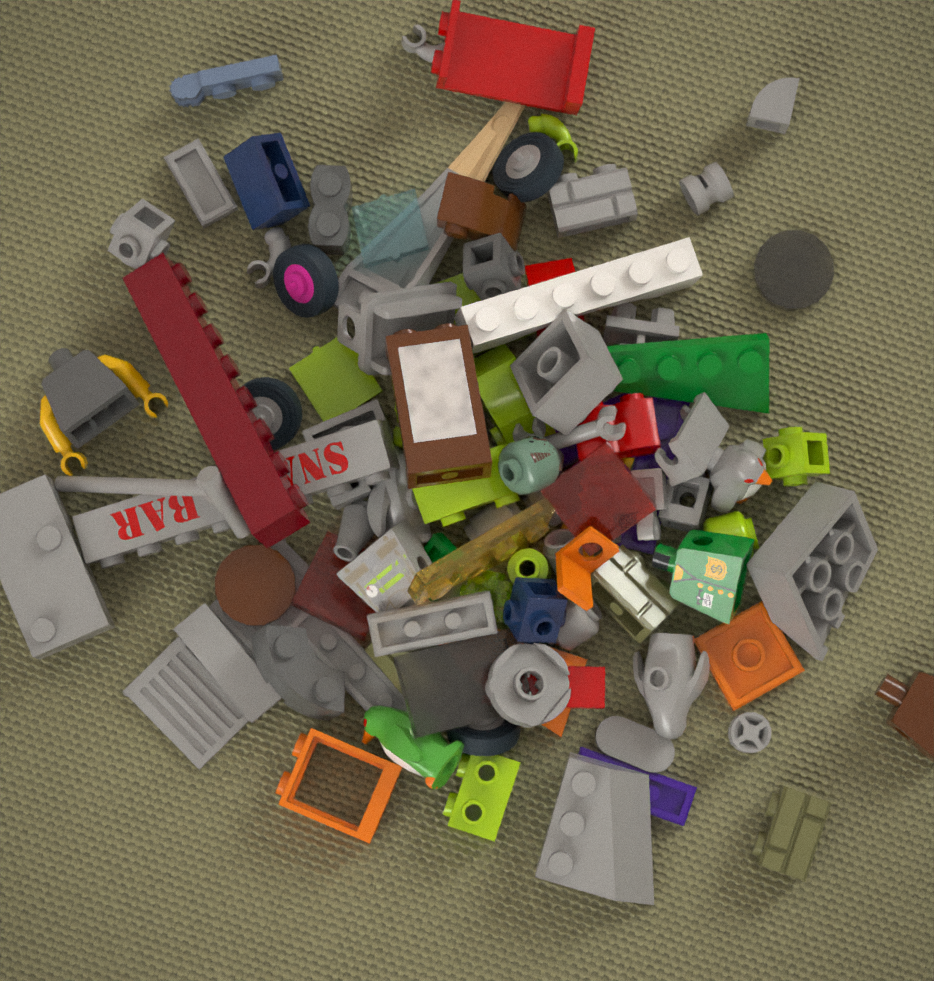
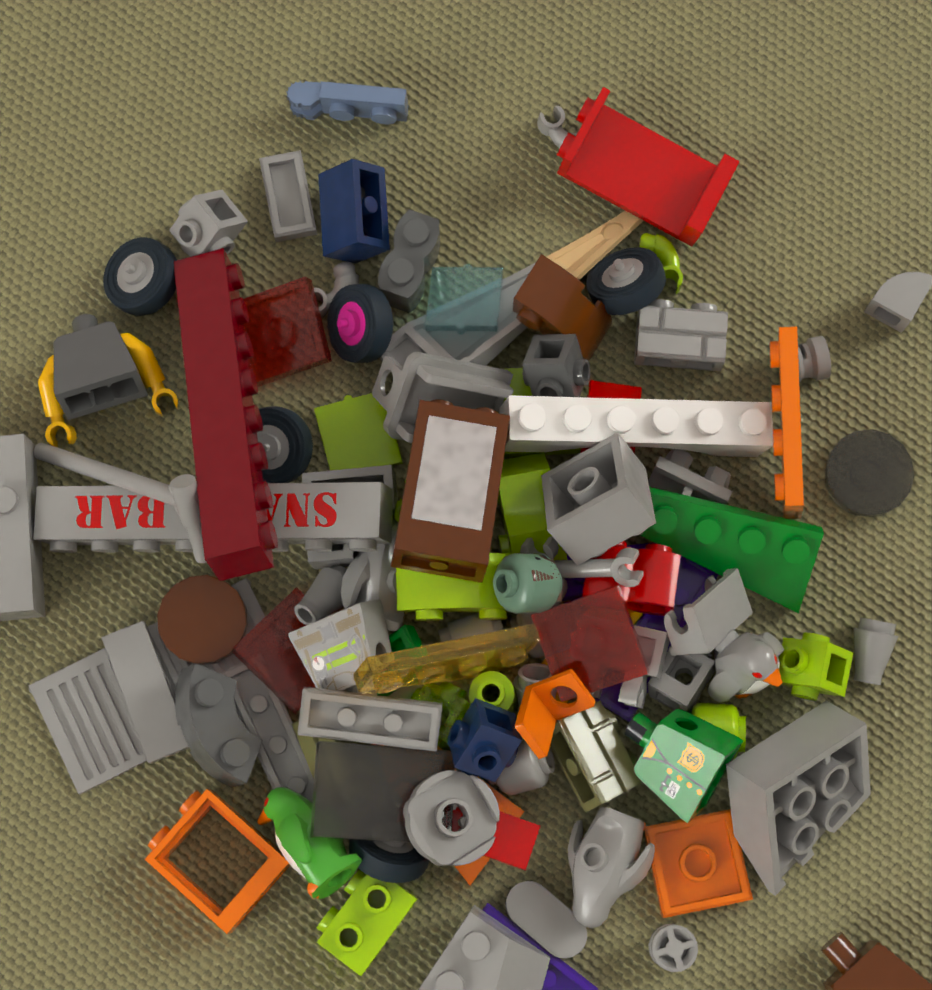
camera: 15 degrees right, 5 degrees down
(96, 300) = (140, 276): none -> black wheel
(242, 307) = (285, 331): none -> clear red tile
(713, 266) = (787, 440): none -> orange wing
(842, 423) = (872, 648): none -> light grey cone

